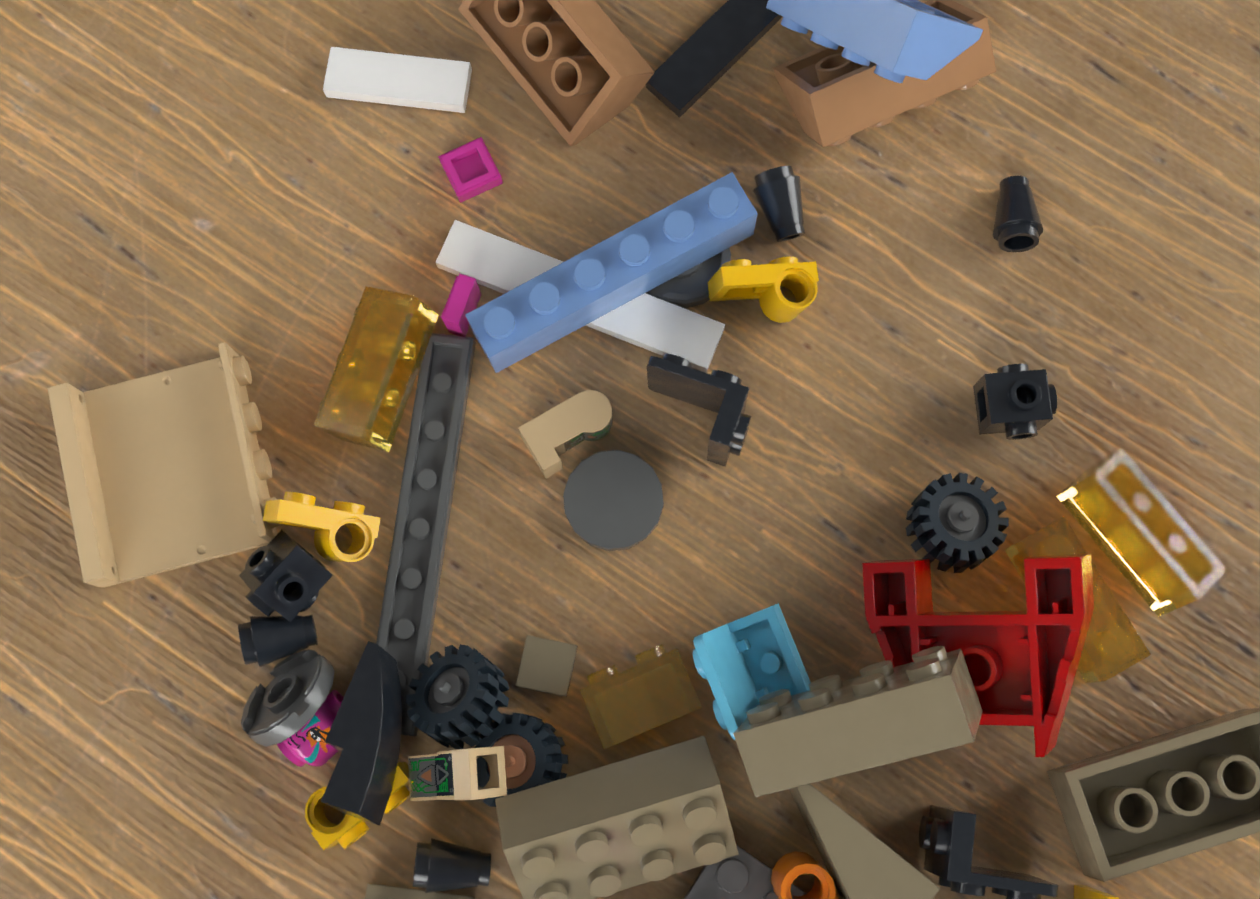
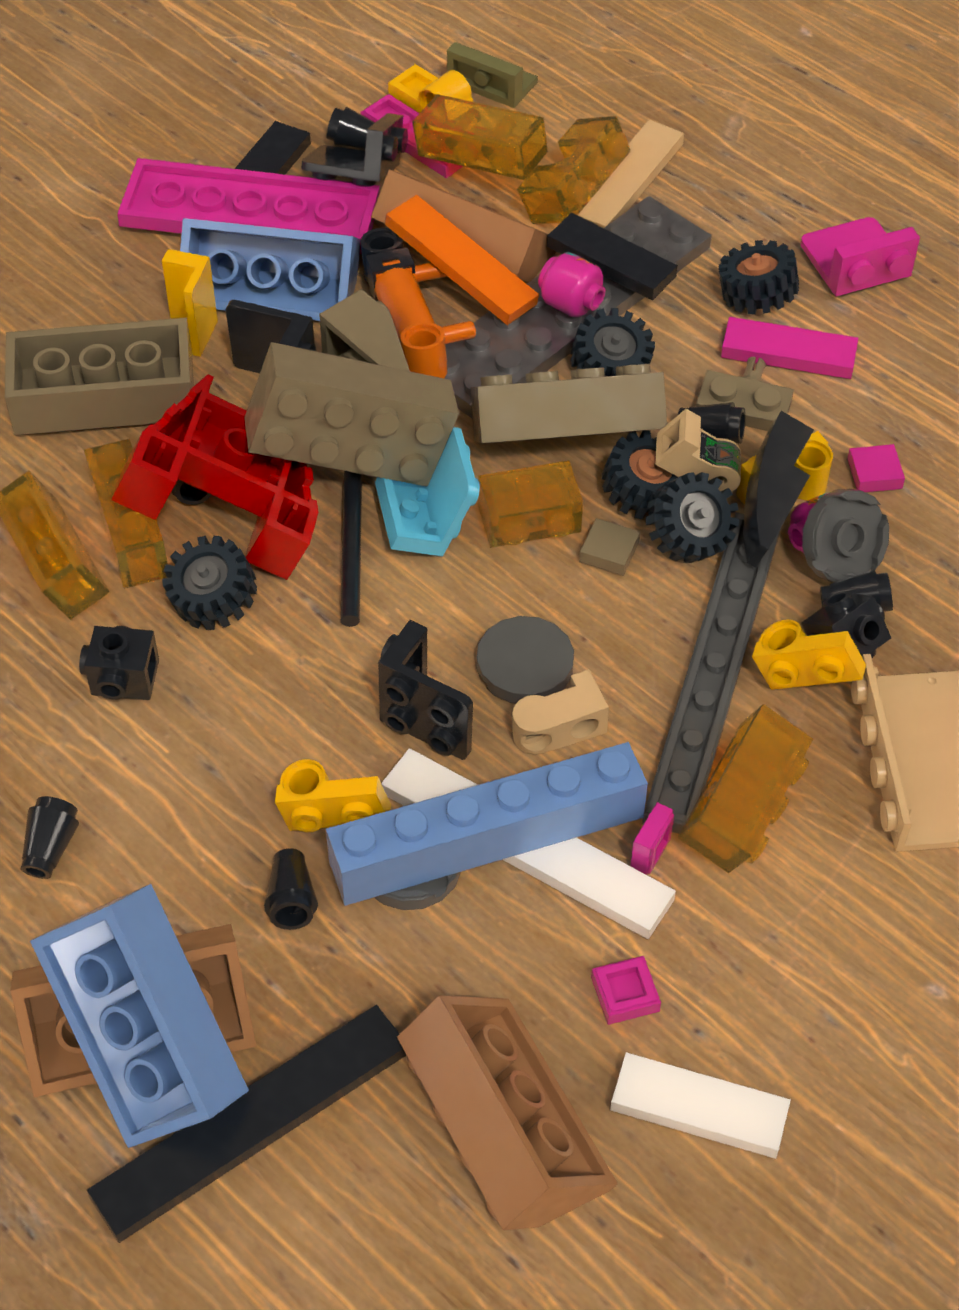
camera: 175 degrees left, 25 degrees down
(260, 838) = (876, 468): none -> dark pink tile
(831, 652) = (351, 549): none -> black bar

